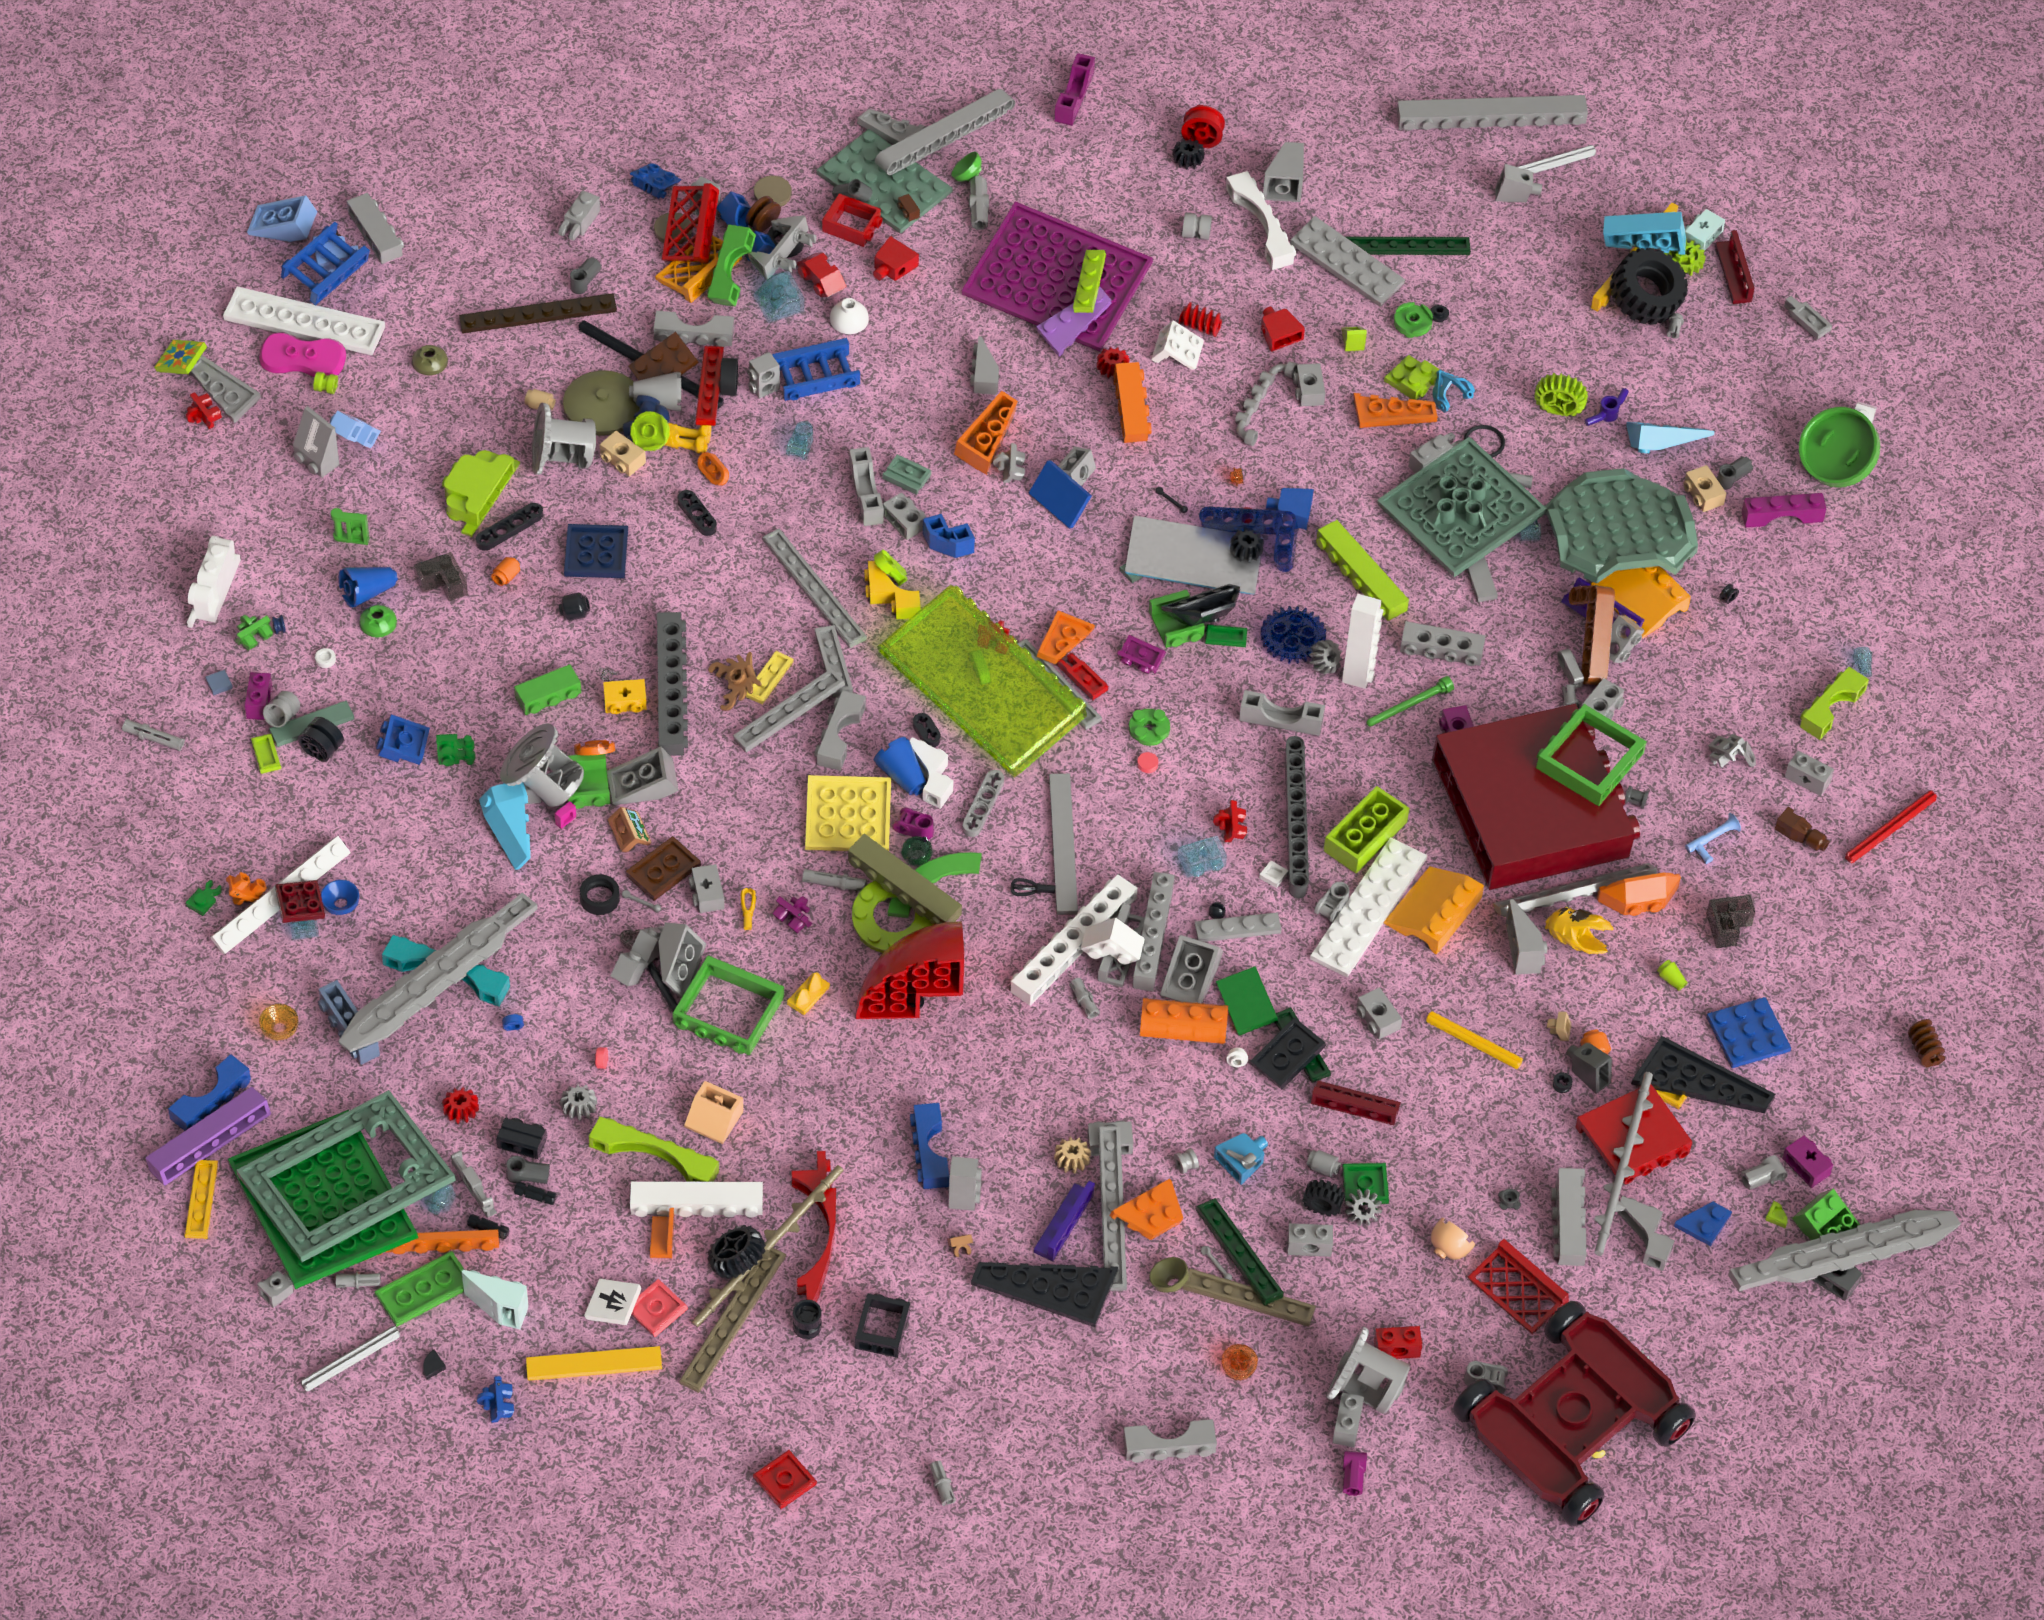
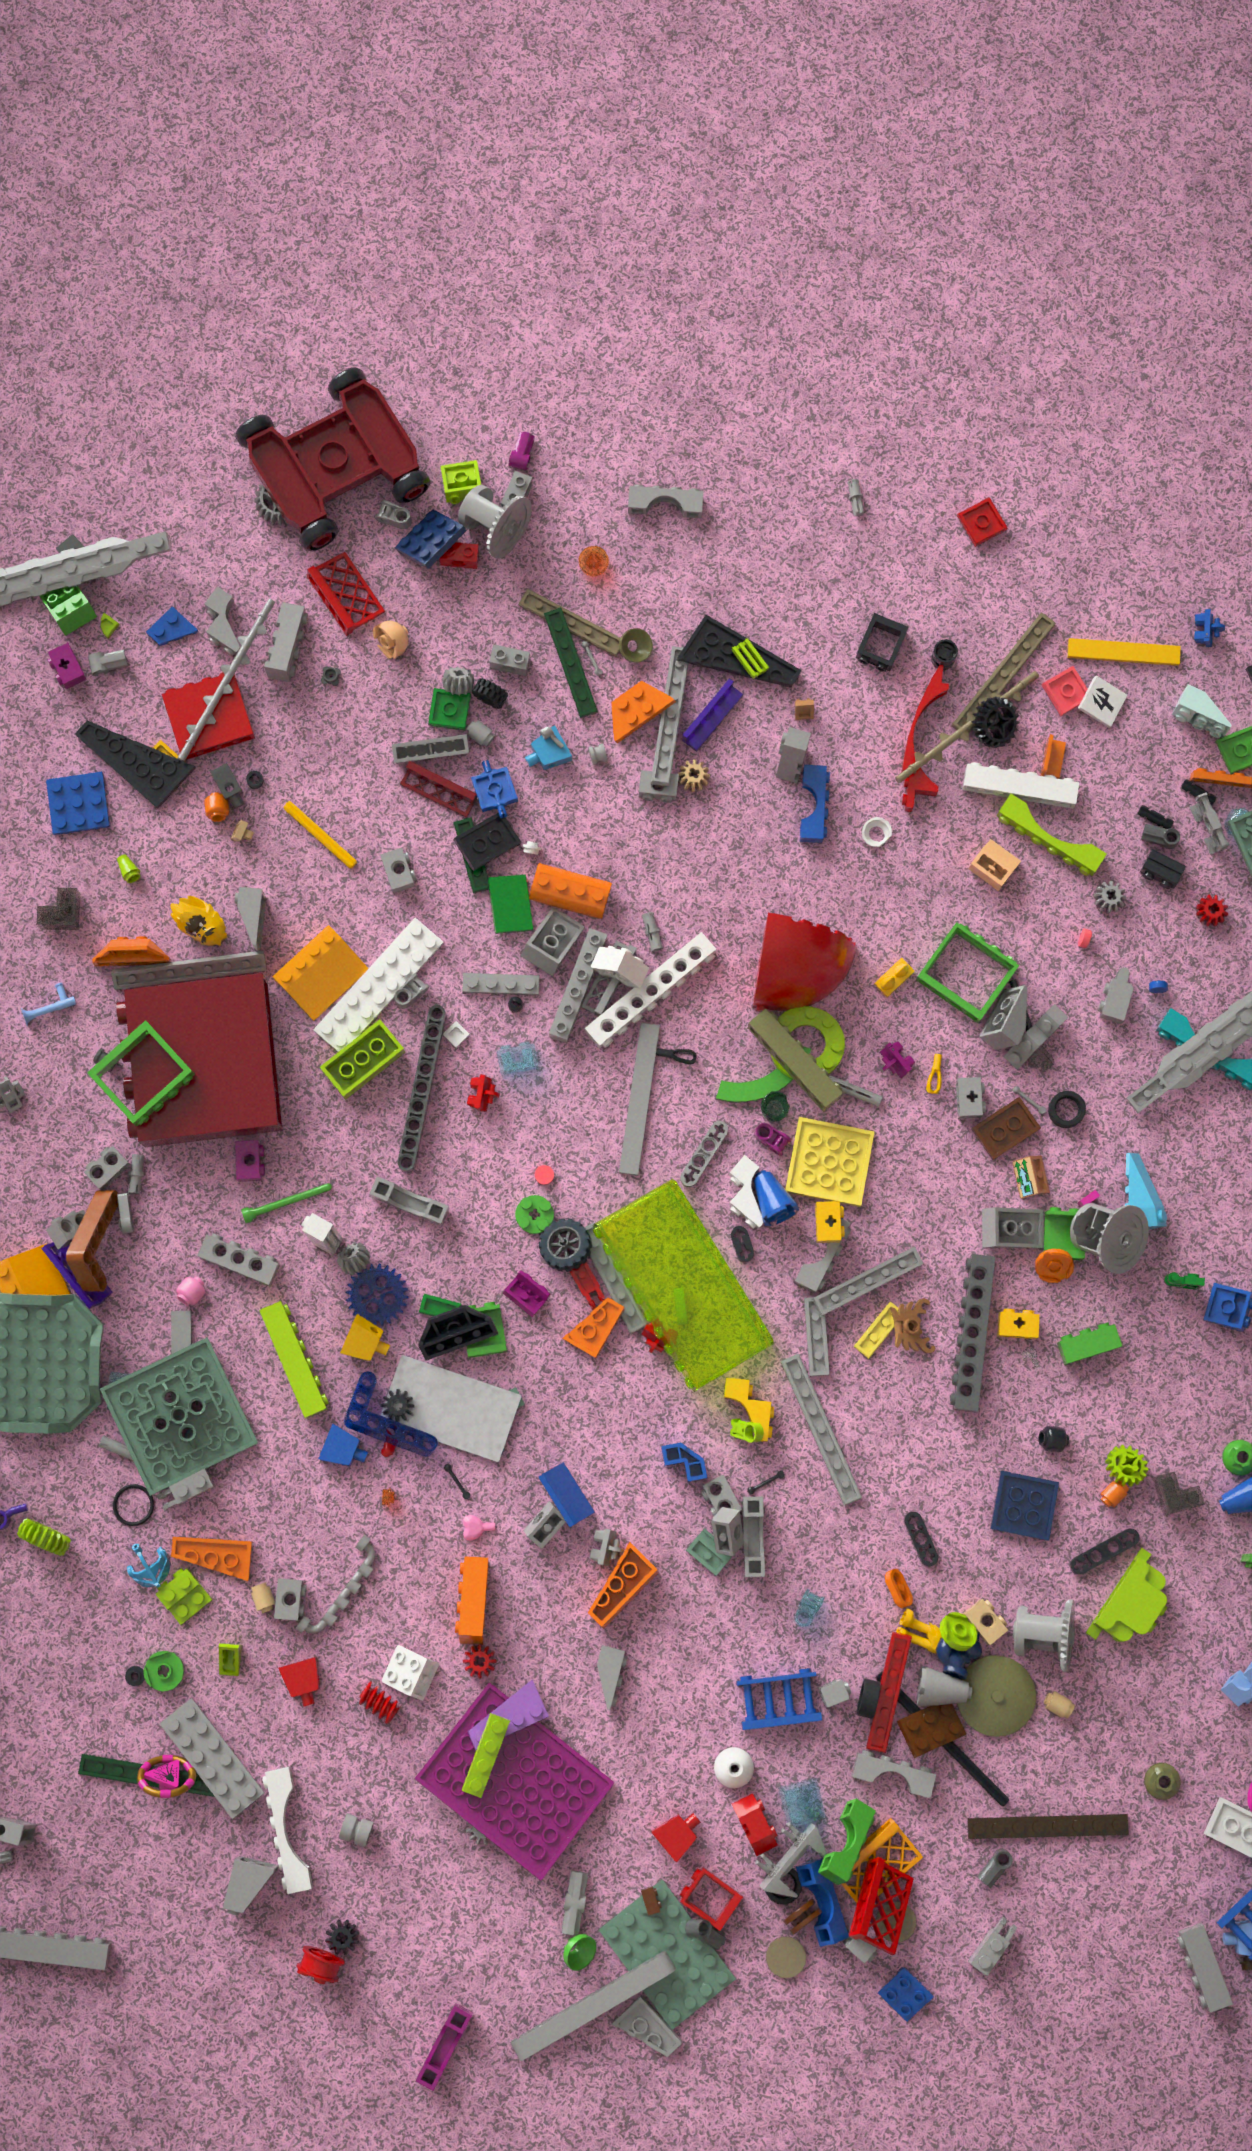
camera: 170 degrees left, 25 degrees up
(490, 597) = (1126, 1465): none -> lime gear
(557, 1004) = (1117, 997): none -> light grey hinge
(841, 743) = (827, 1210): none -> yellow brick
(848, 547) = (780, 1474): none -> black hinge
(854, 1121) = (876, 822): none -> white piece
(893, 479) = (727, 1531): none -> light grey brick
(1021, 1265) = (753, 651): none -> lime tile
(1121, 684) = (568, 1262): none -> black wheel
(1144, 465) = (475, 1527): none -> bright pink rock
(1293, 1107) = (494, 789): none -> blue plate
(1295, 591) = (364, 1340): none -> yellow torso
(1336, 383) = (263, 1597): none -> tan brick
(1376, 1138) = (430, 748): none -> light grey brick
(1386, 235) = (166, 1776): none -> piece
(1417, 1425) = (459, 480): none -> lime plate
(1435, 1347) = (430, 538): none -> dark blue plate
(1483, 612) = (190, 1291): none -> bright pink head

